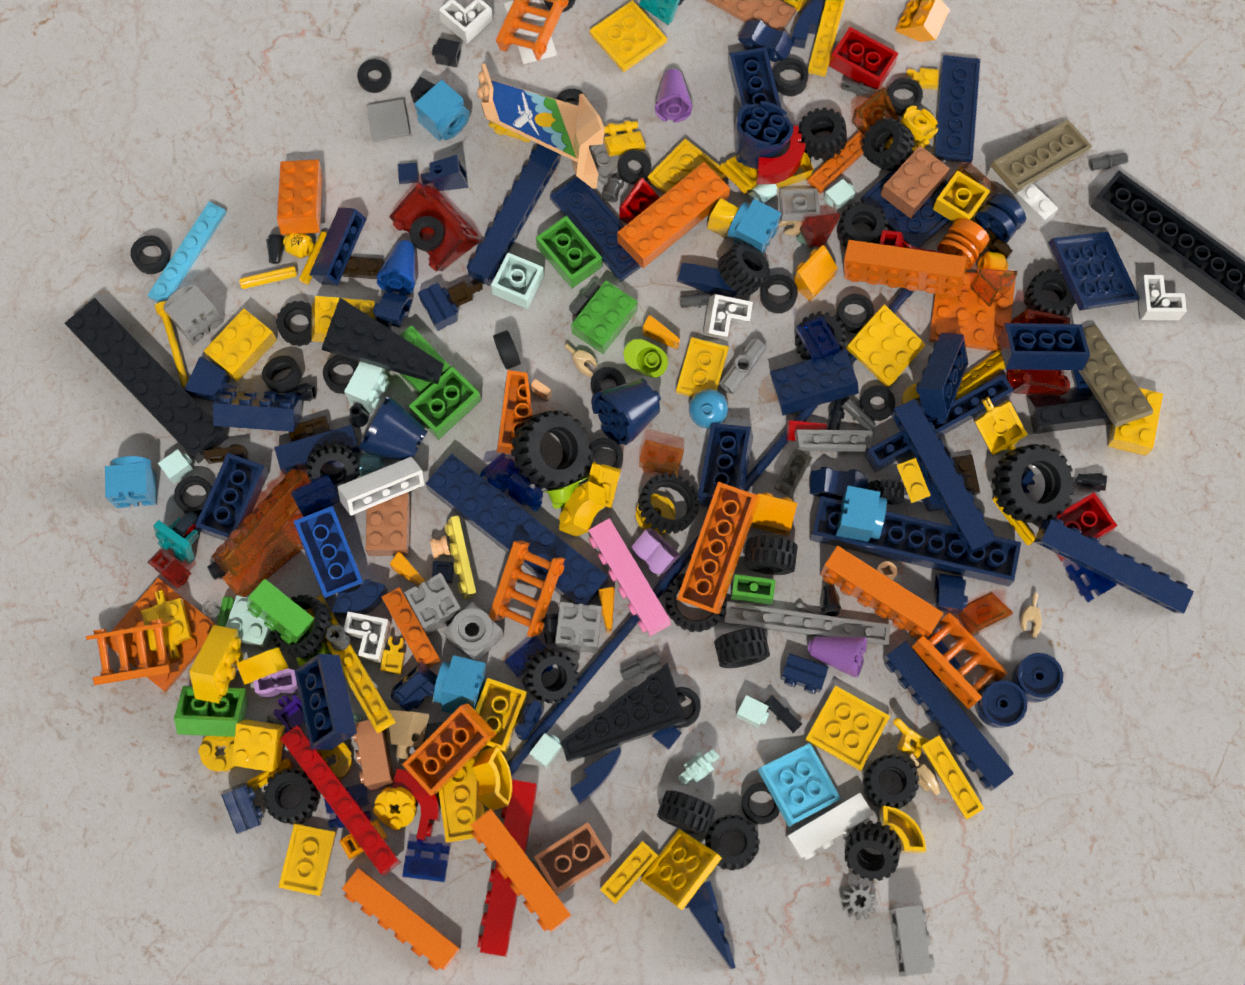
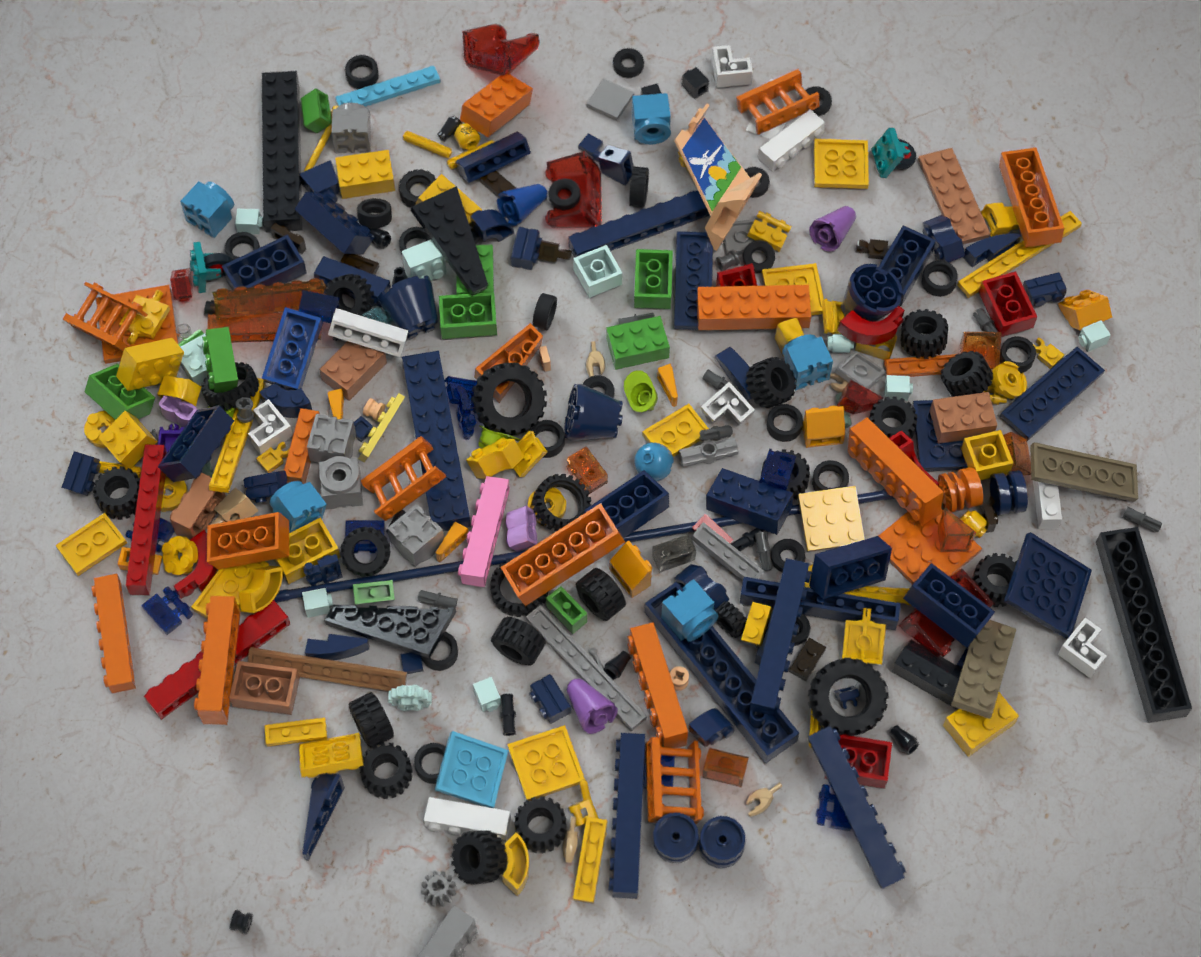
camera: 40 degrees right, 10 degrees down
(144, 320) = (316, 110): none -> bright green brick
(255, 152) = (491, 51): none -> clear red windscreen
(487, 180) = (639, 186): none -> black tyre
(571, 45) = (791, 140): none -> white brick
(586, 703) = (373, 592): none -> bright green brick
(607, 799) = (331, 670): none -> medium nougat plate
(717, 89) = (876, 248): none -> dark brown plate
(736, 345) = (716, 433): none -> dark grey axle
(880, 23) = (1045, 289): none -> dark blue brick
(947, 36) = (1094, 336): none -> light aqua brick

